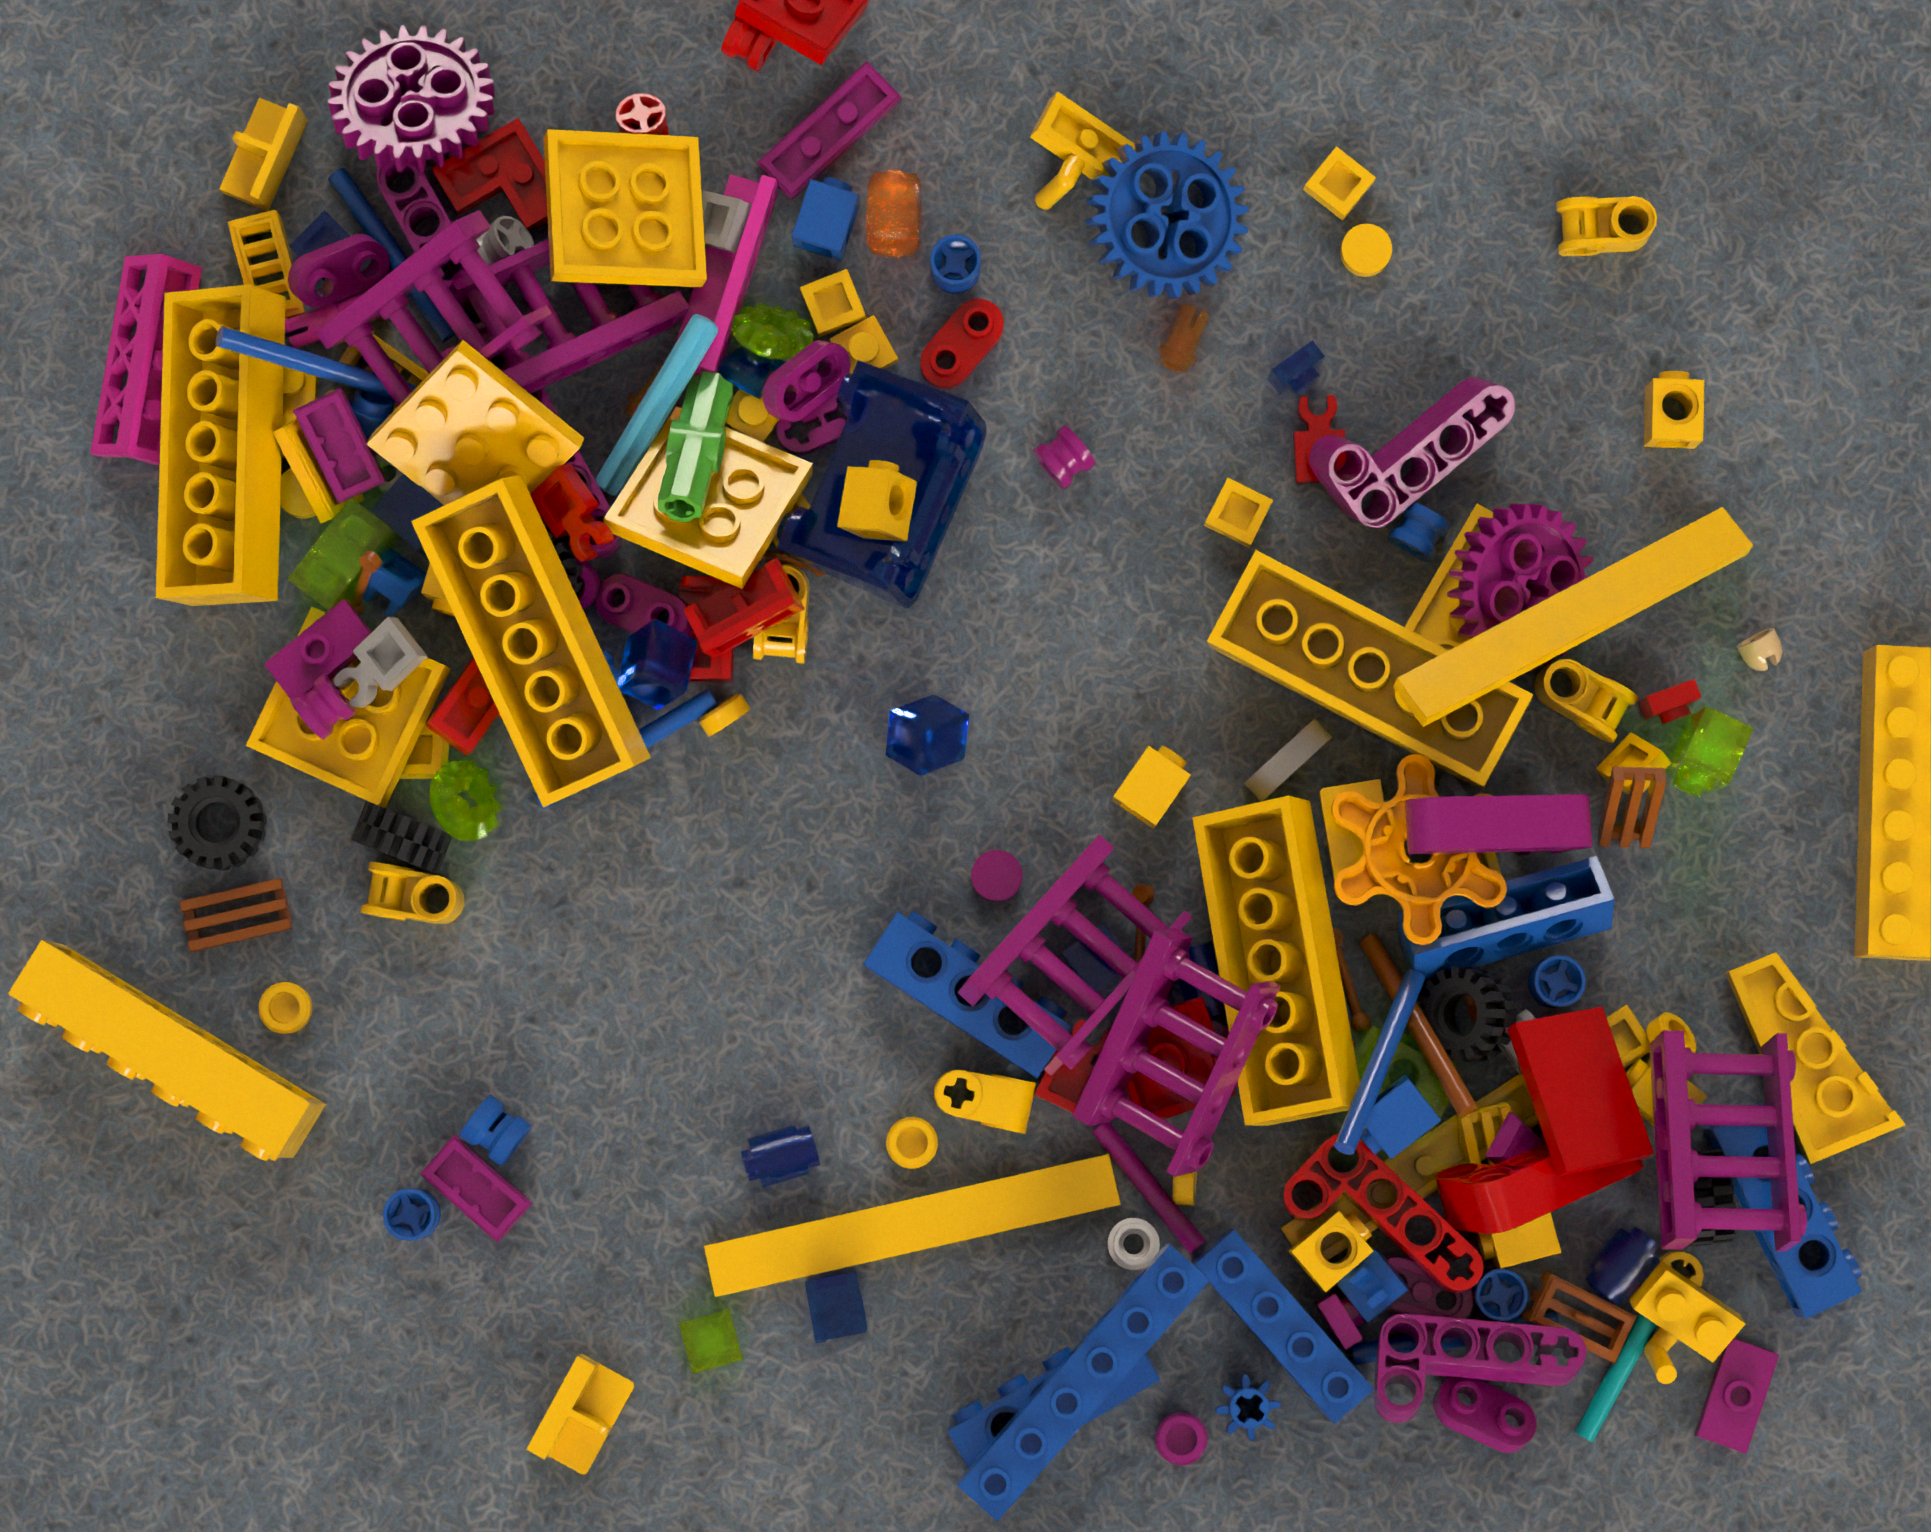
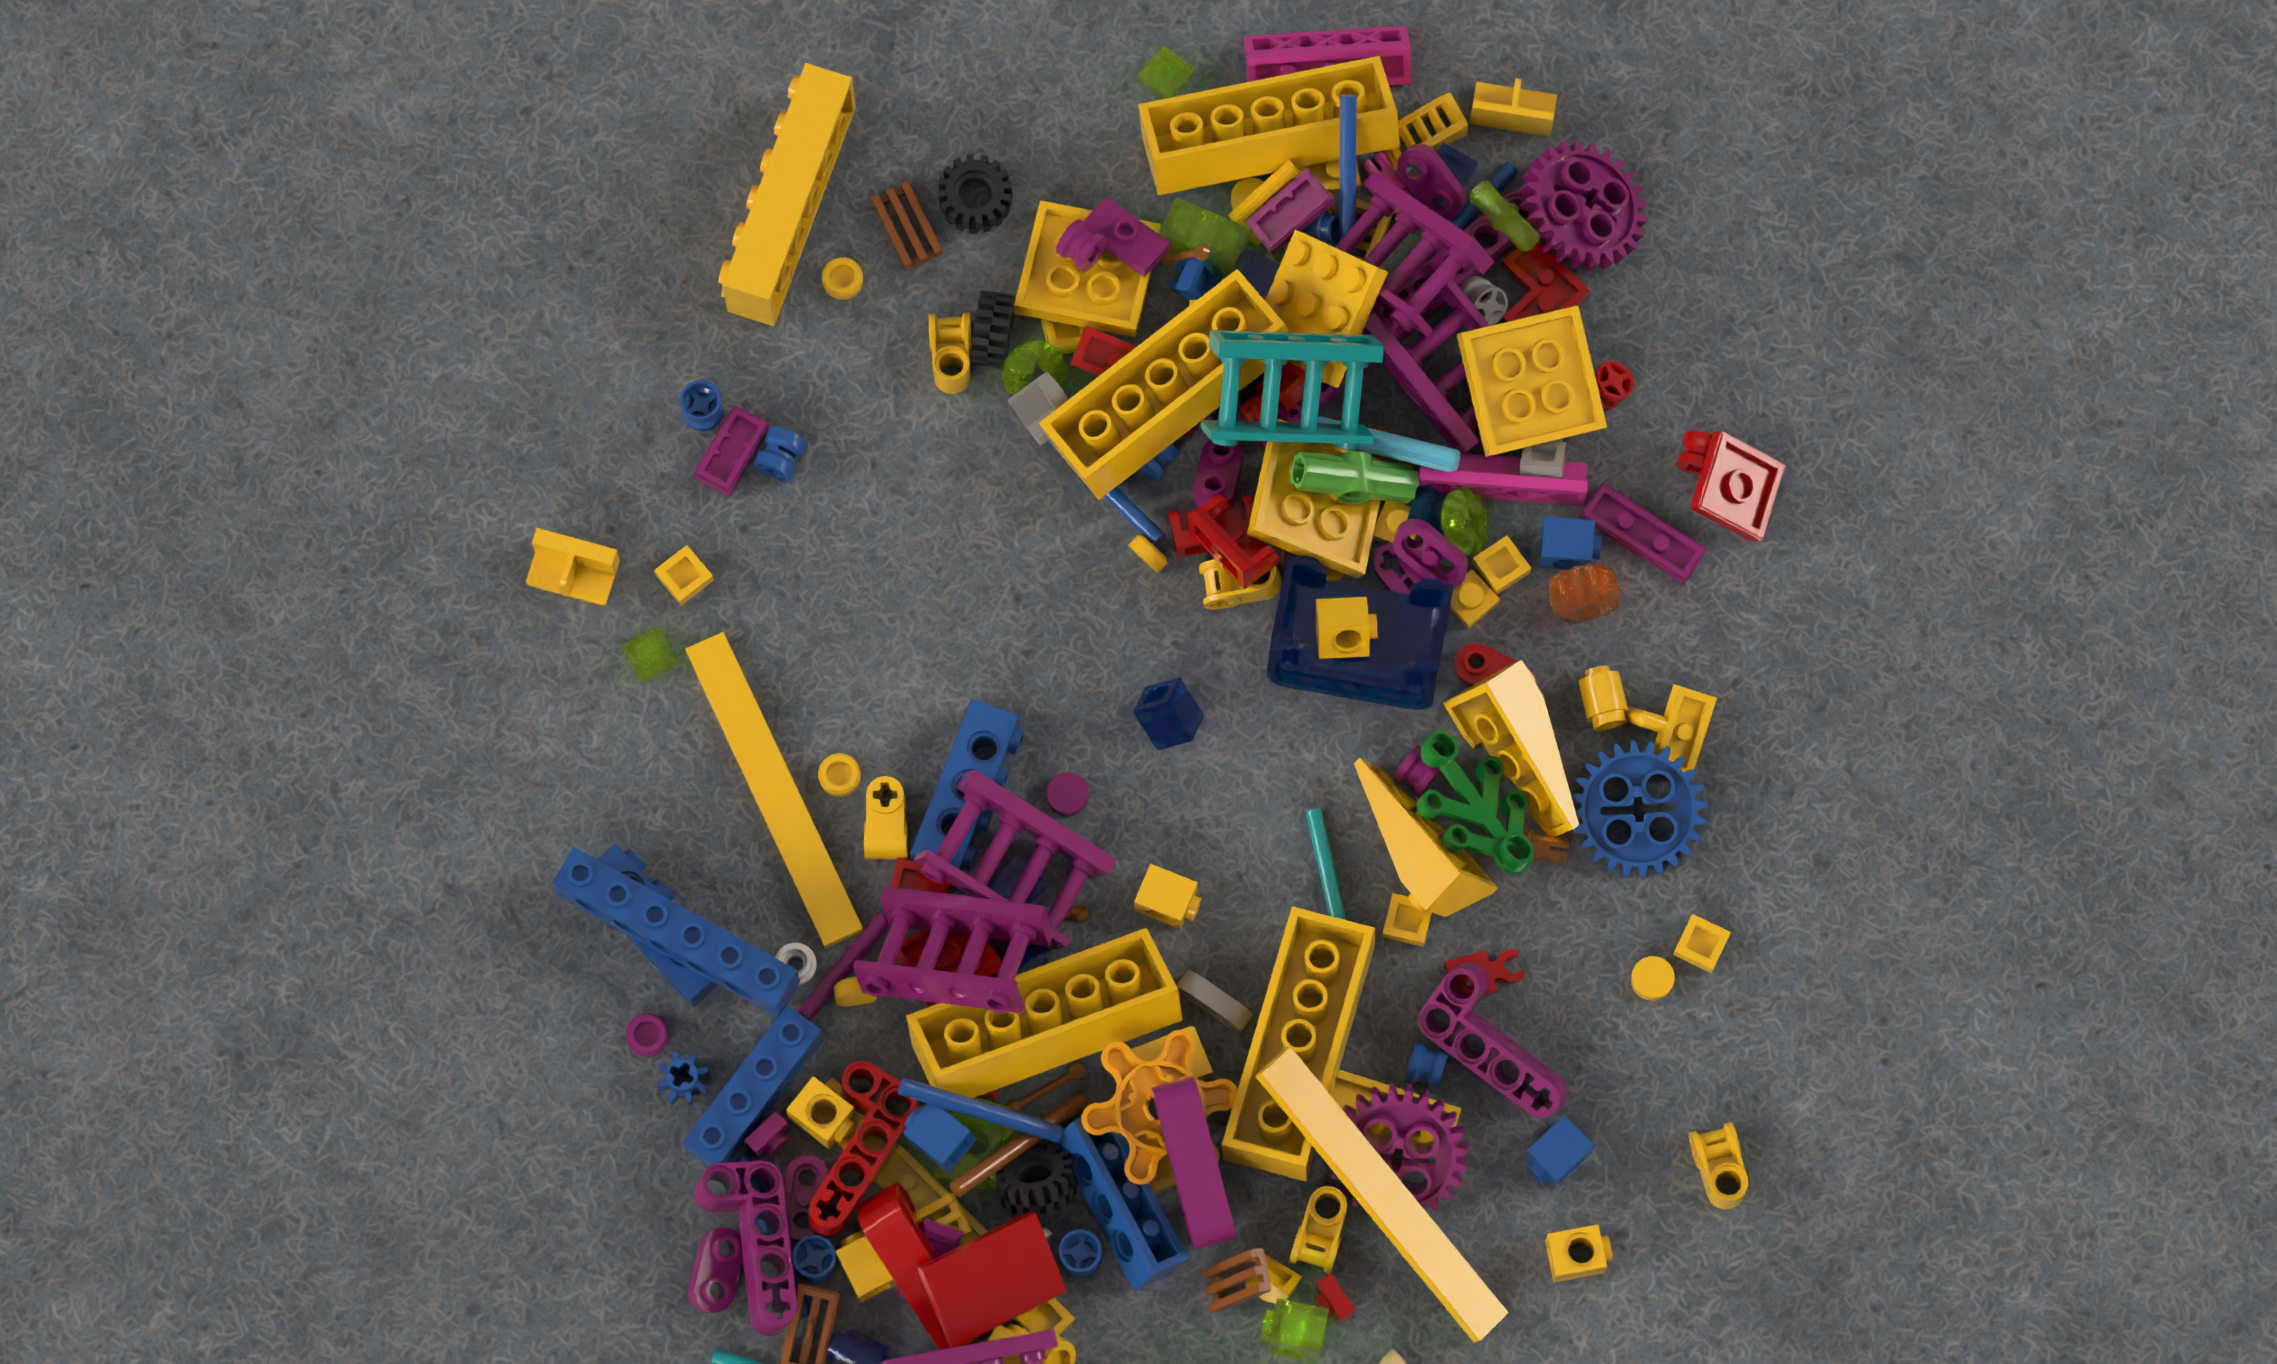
camera: 80 degrees right, 10 degrees down
(118, 557) = (1166, 74): none -> clear neon green plate
(385, 659) = (1127, 283): light grey plate -> none
(409, 191) = (1504, 216): none -> clear neon green axle
(510, 802) = (1036, 403): none -> light grey panel
(534, 494) = (1275, 350): none -> teal fence
(621, 1279) = (684, 575): none -> yellow plate
(656, 664) = (1173, 488): clear blue panel -> none
(780, 1155) = (806, 673): clear blue brick -> none
(836, 1306) = (696, 741): clear blue panel -> none
(955, 255) = (1559, 644): blue wheel -> none
(1023, 223) = (1603, 698): none -> yellow brick
(1041, 331) = (1513, 724): none -> yellow wedge
(1131, 395) = (1477, 808): none -> green plant
(1155, 593) = (1325, 863): none -> teal bar
(1188, 470) = (1434, 876): none -> yellow wedge
(1297, 370) = (1536, 940): clear blue plate -> none
(1373, 1285) = (800, 1153): blue tile -> none
(1552, 405) = (1558, 1152): none -> blue brick

